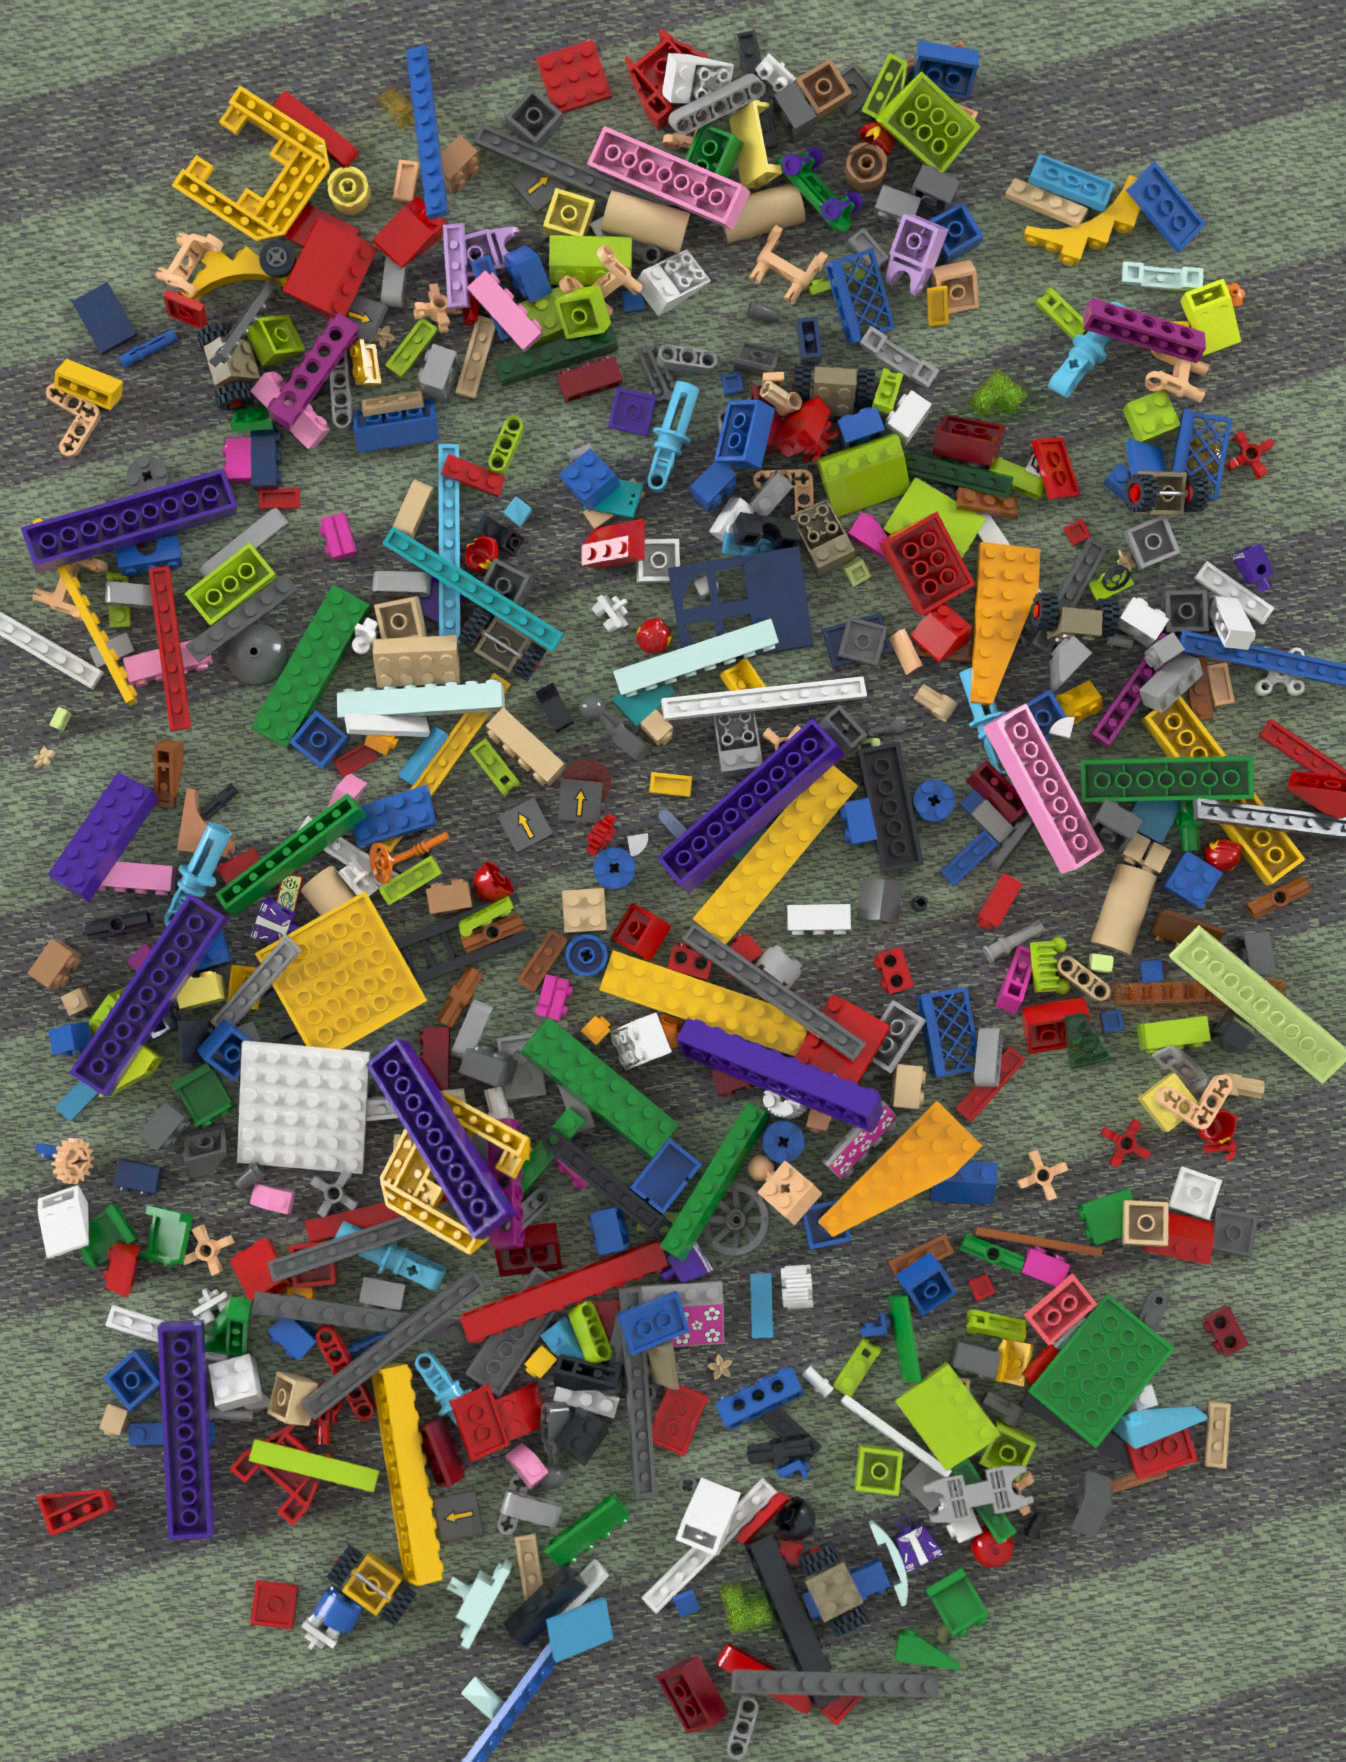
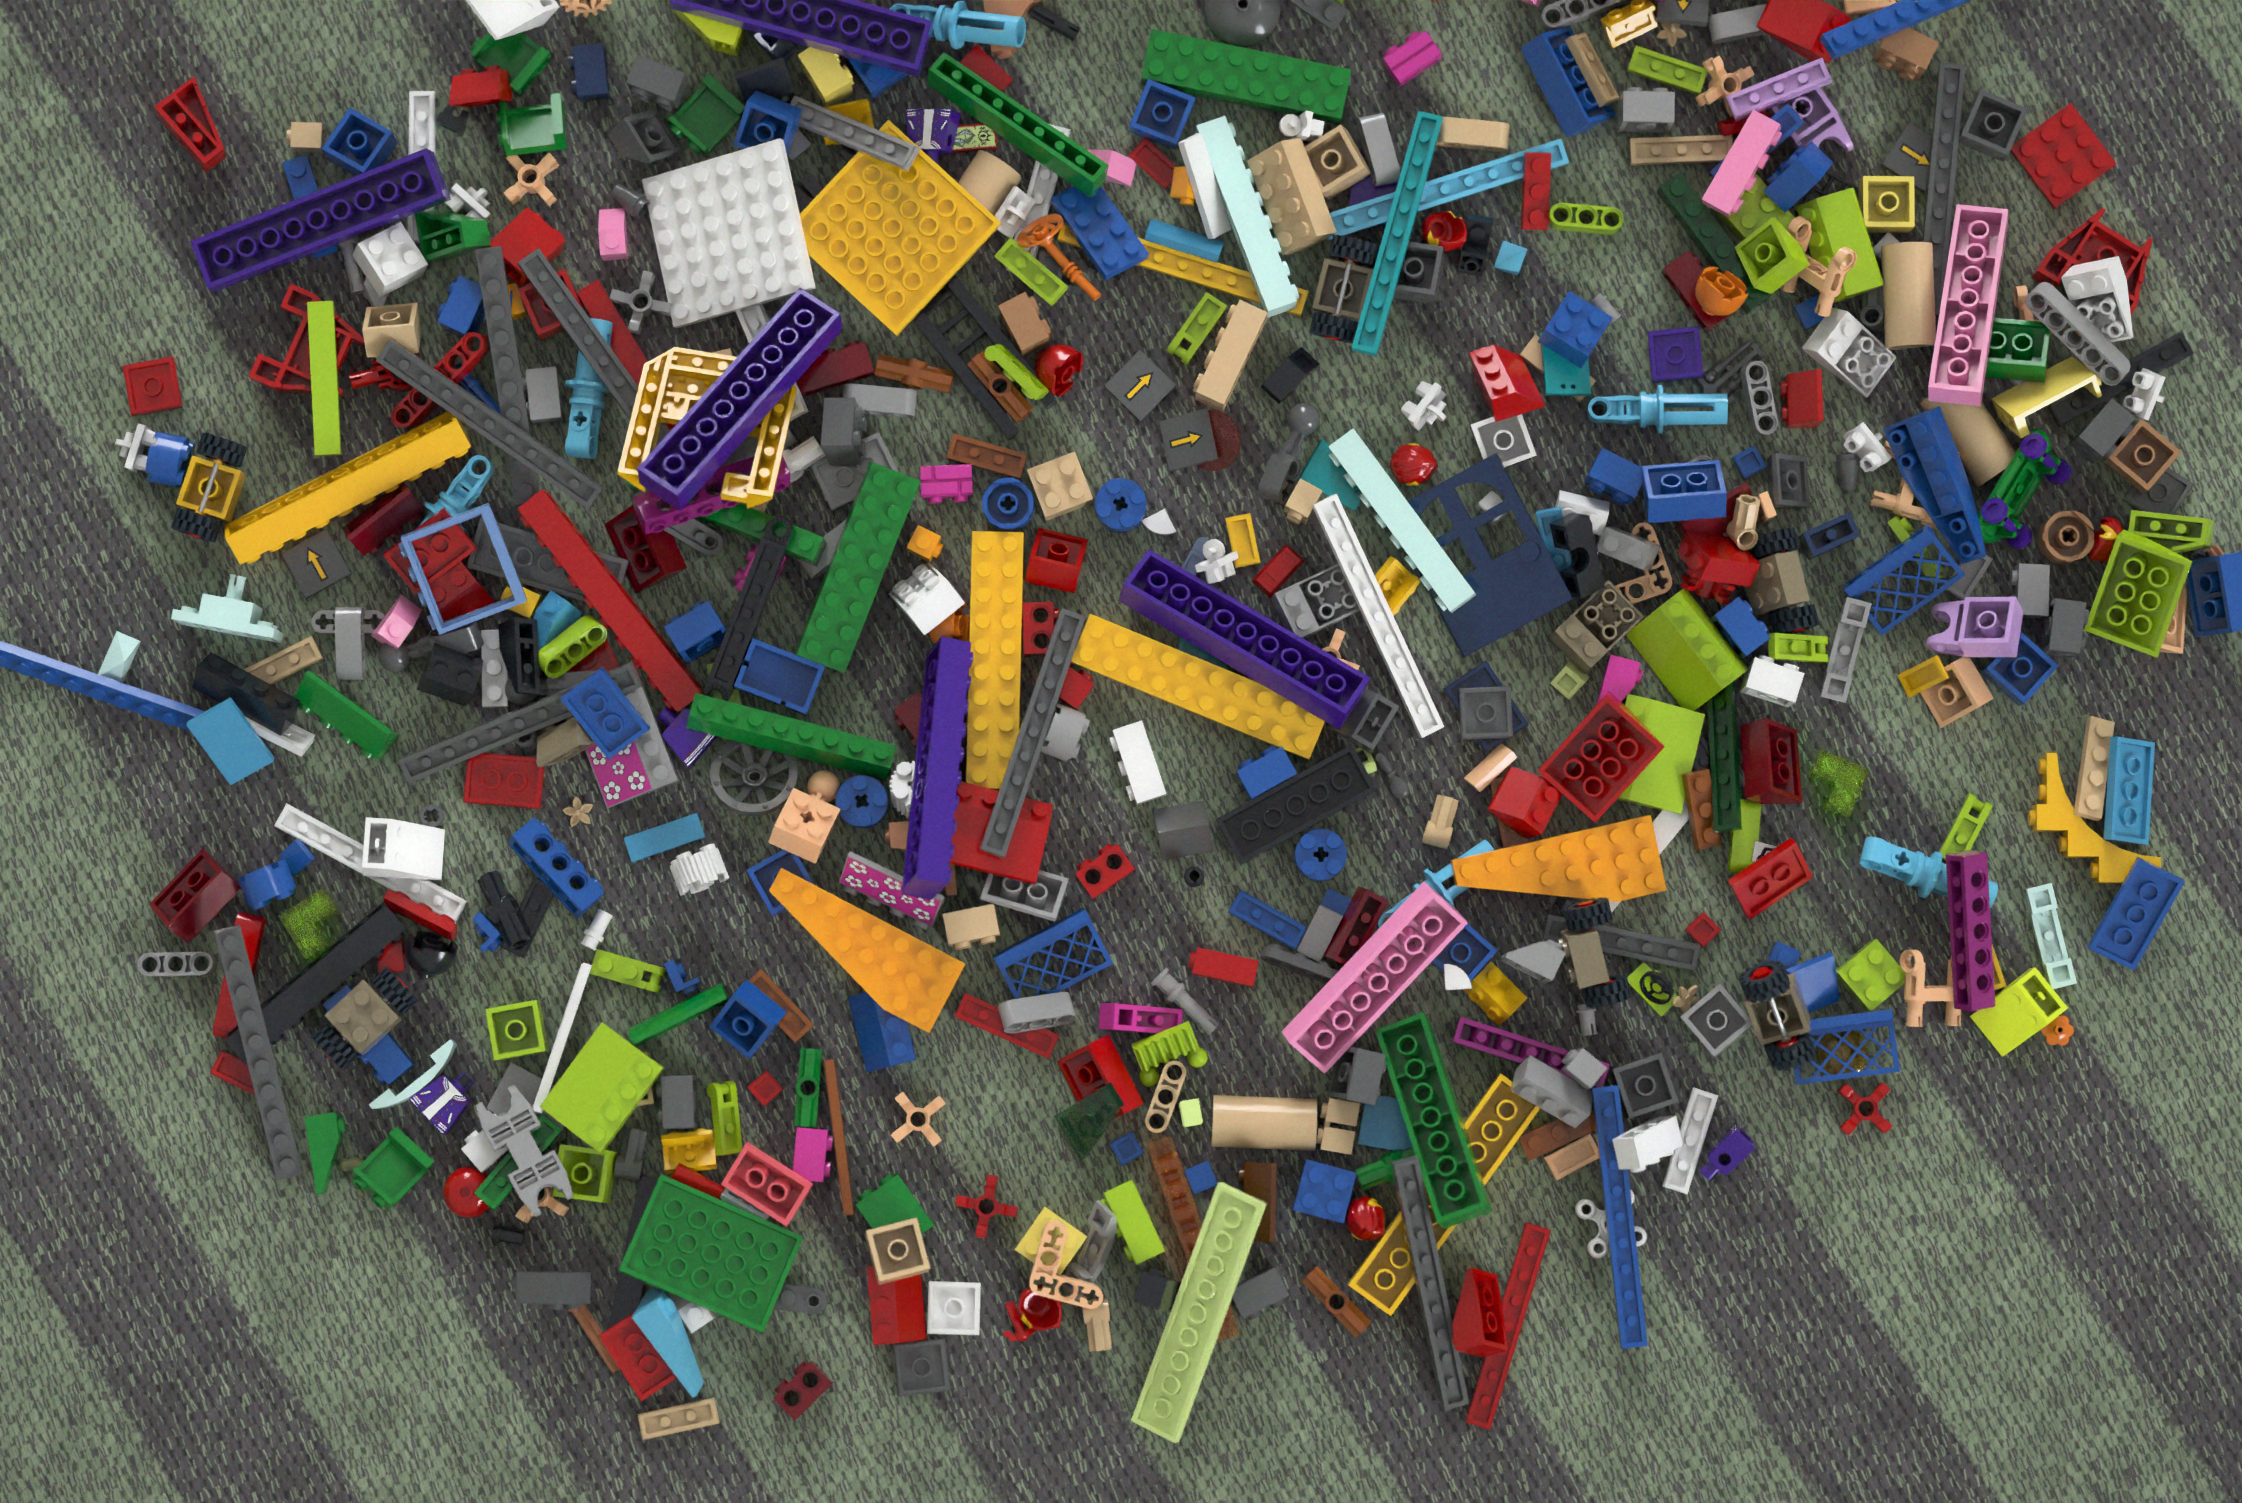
camera: 70 degrees right, 0 degrees up
(142, 1299) = (452, 123): none -> black tile
(514, 1436) = (426, 595): none -> medium blue window
(598, 359) = (1719, 292): none -> orange cylinder
(601, 834) = (1155, 476): red gear -> none
(684, 808) = (1216, 565): none -> white hips
(698, 326) = (1802, 399): none -> red slope
(701, 1634) = (266, 883): none -> blue brick
(702, 765) = (1278, 570): none -> red tile
(750, 291) = (1867, 447): none -> white hips
(792, 245) = (1938, 479): none -> blue wedge
(1142, 621) = (1616, 1036): white brick -> none

